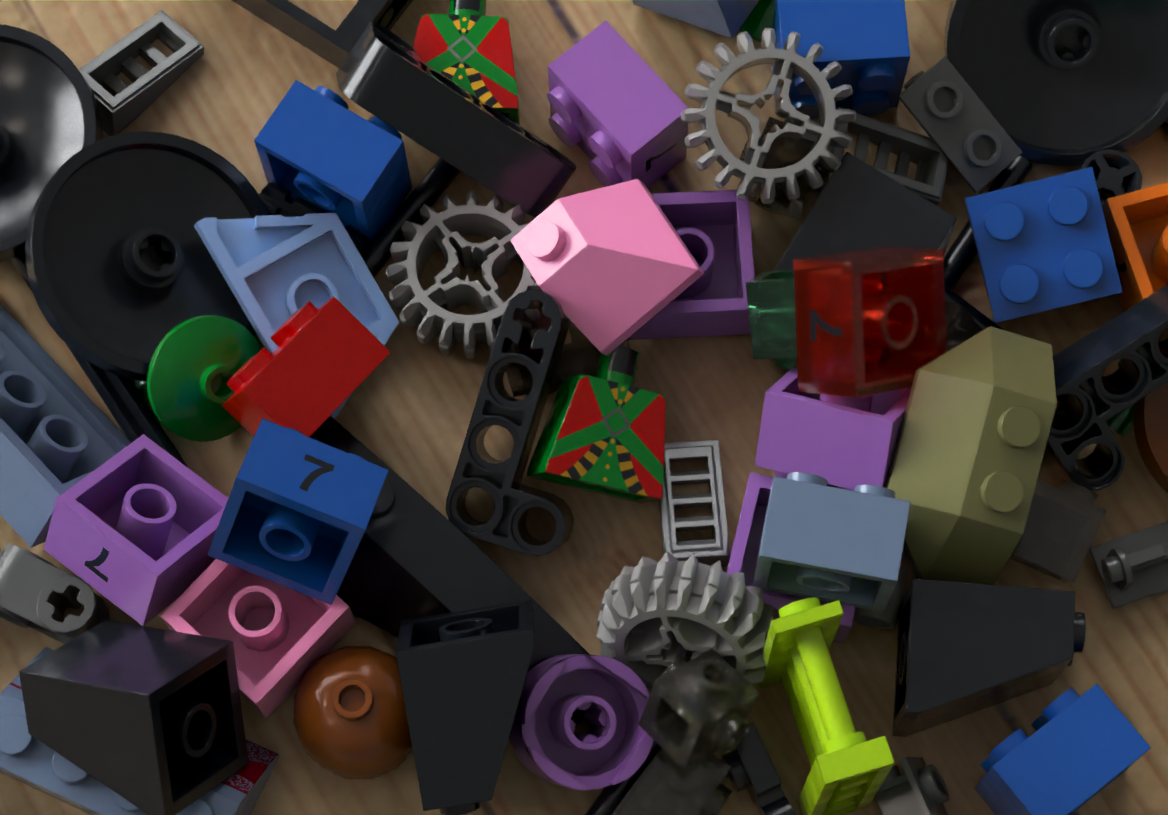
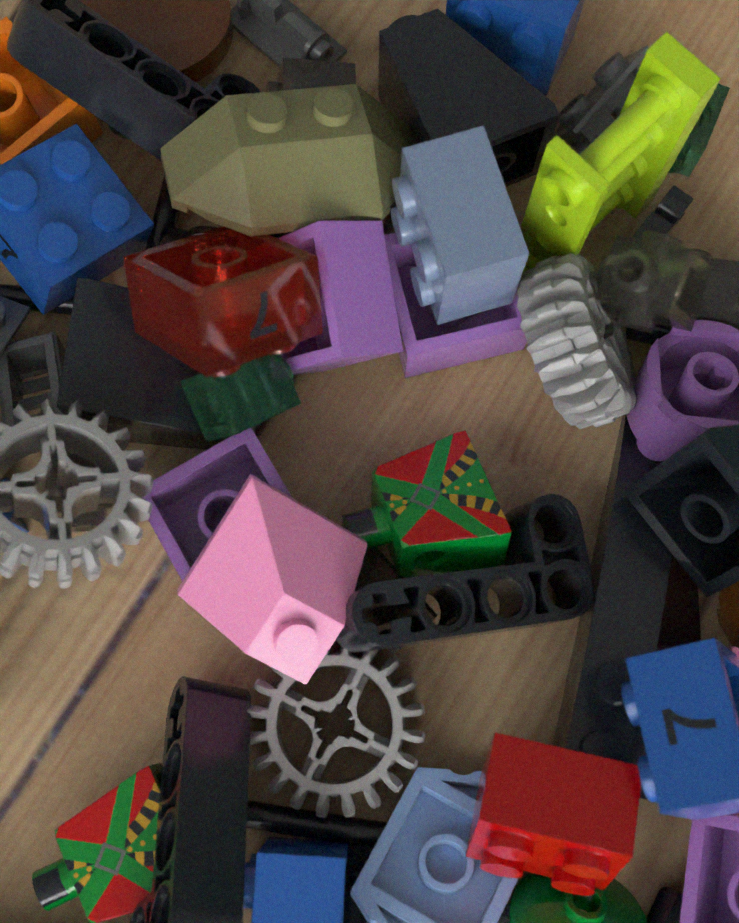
camera: 120 degrees left, 5 degrees up
(616, 110) = (104, 666): medium lavender brick -> none
(708, 550) = (472, 370): dark grey slope -> none

